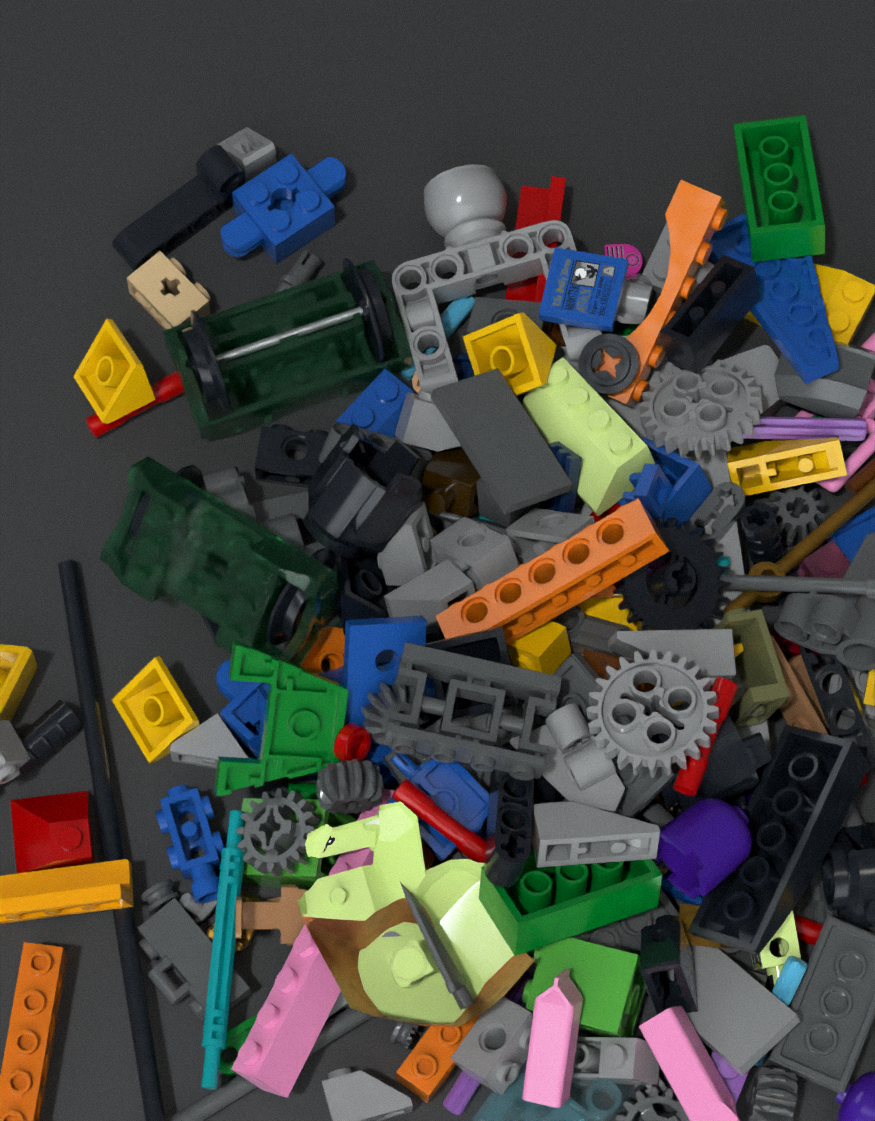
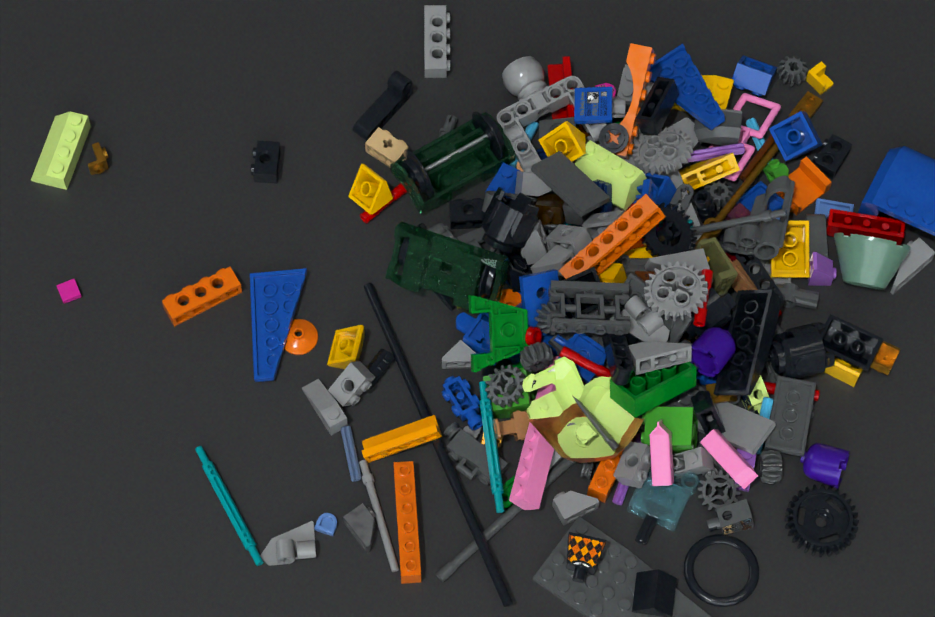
camera: 10 degrees left, 5 degrees down
(52, 831) = (392, 411): red slope -> none
(155, 710) = (429, 344): yellow slope -> none
(250, 152) = (413, 71): light grey slope -> none
(293, 220) = (433, 96): blue brick -> none
(319, 48) = (436, 16): none -> light grey brick
(779, 189) = (675, 42): green brick -> none

